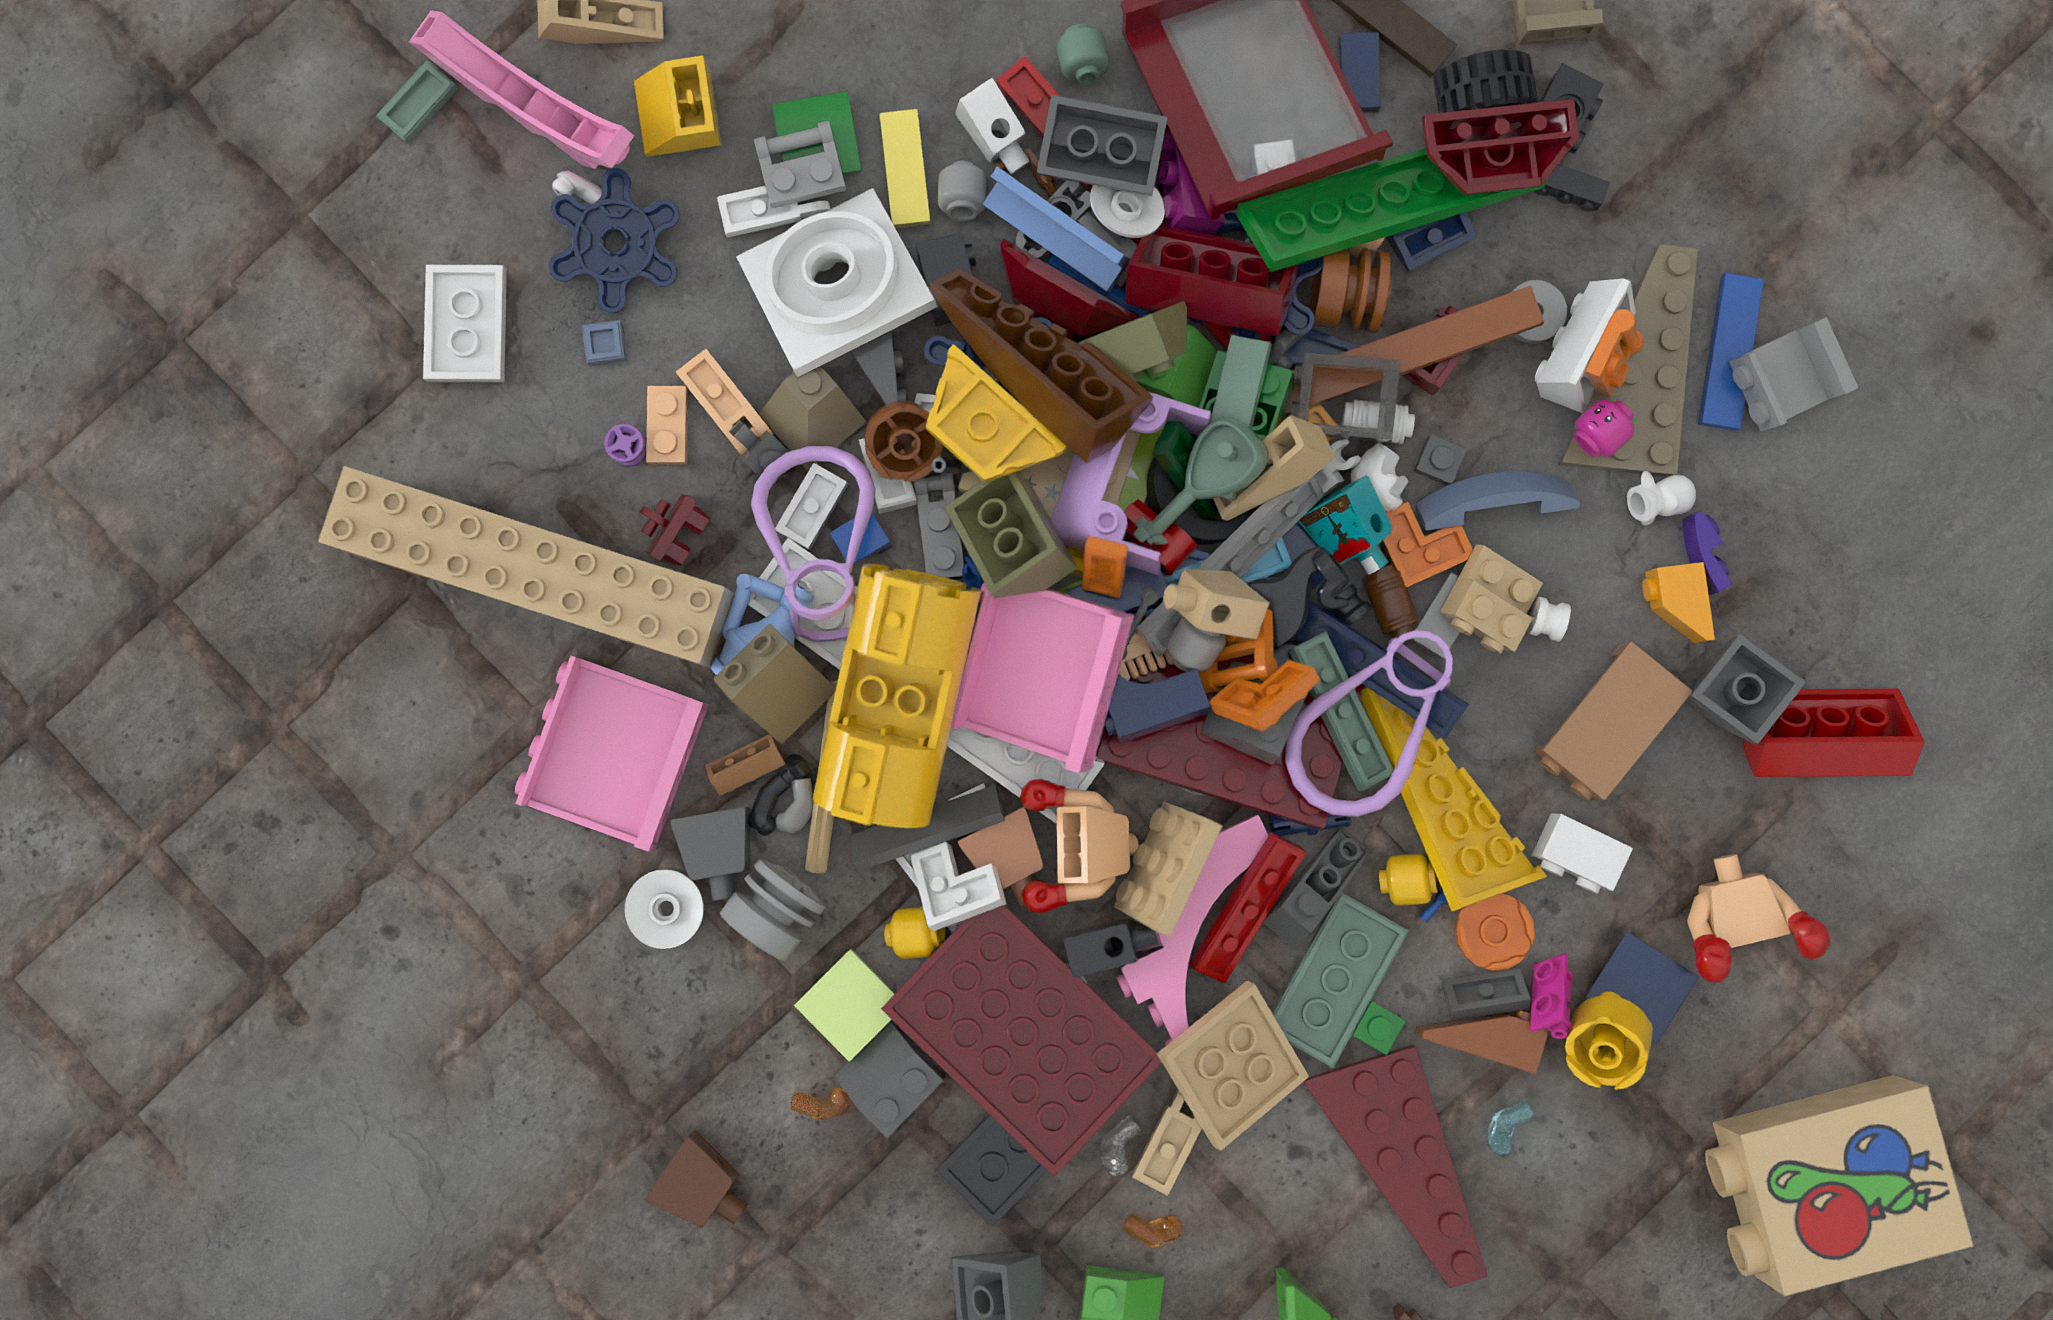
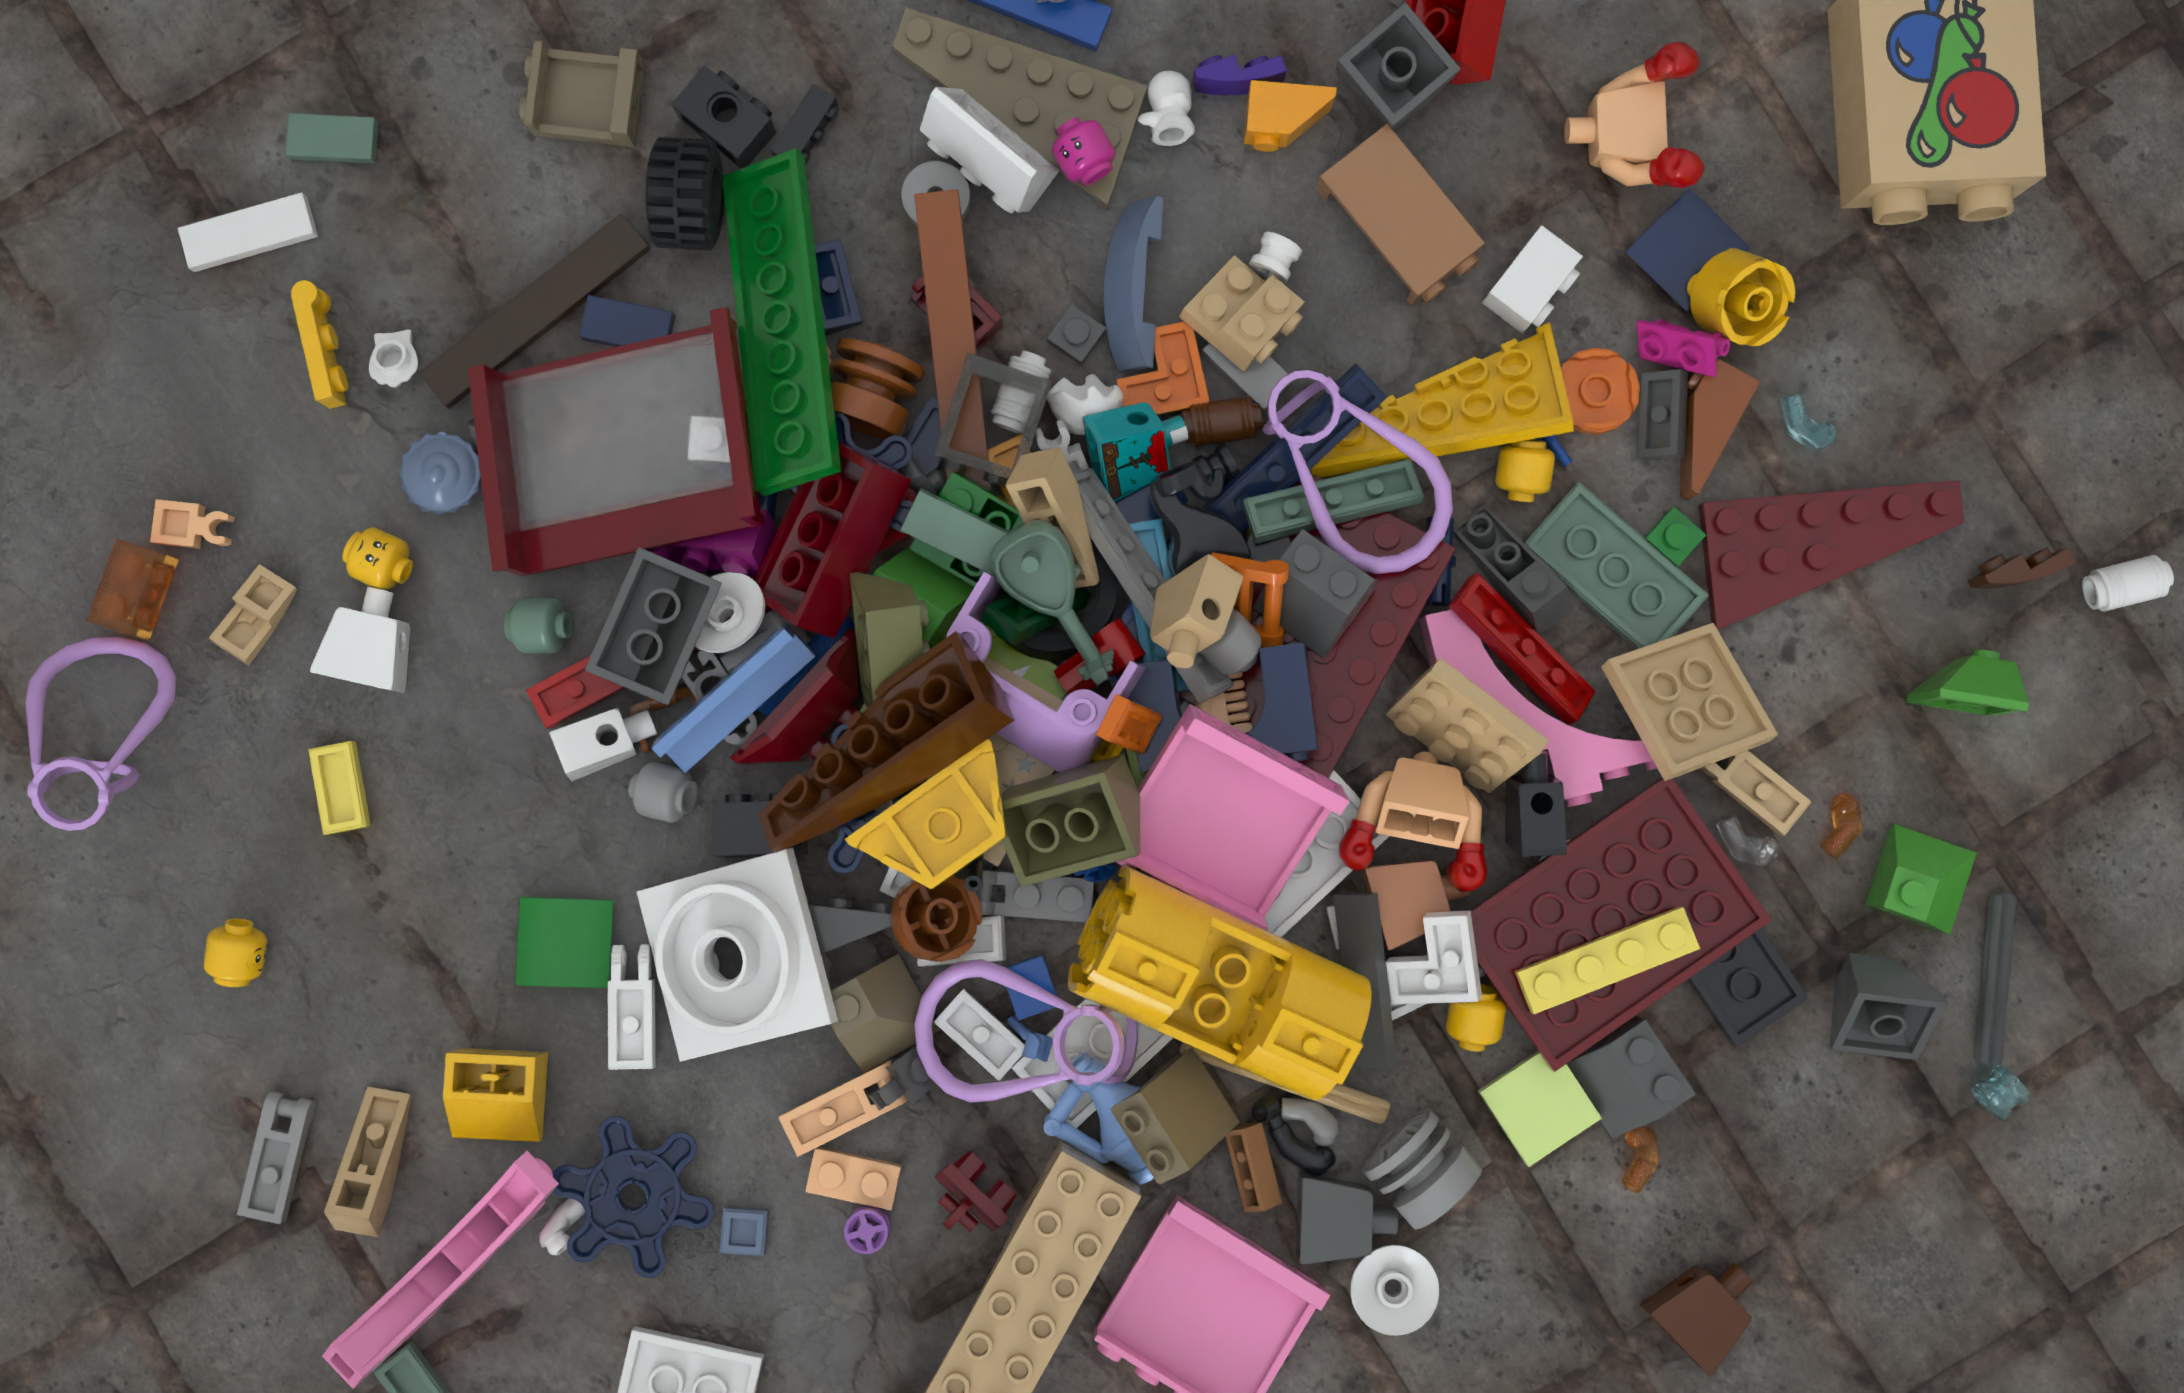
camera: 85 degrees left, 0 degrees up
(801, 177) = (608, 968): light grey plate -> none
(814, 551) = (1036, 1044): none -> medium blue hand
(905, 168) = (621, 850): light yellow tile -> none
(988, 1035) = (1607, 960): none -> light yellow plate
(1149, 597) = (1169, 682): dark grey hinge -> none
(1264, 704) = (1317, 585): orange plate -> none
(1501, 145) = (752, 190): dark red wedge -> none
(1618, 342) = (1016, 130): orange plate -> none

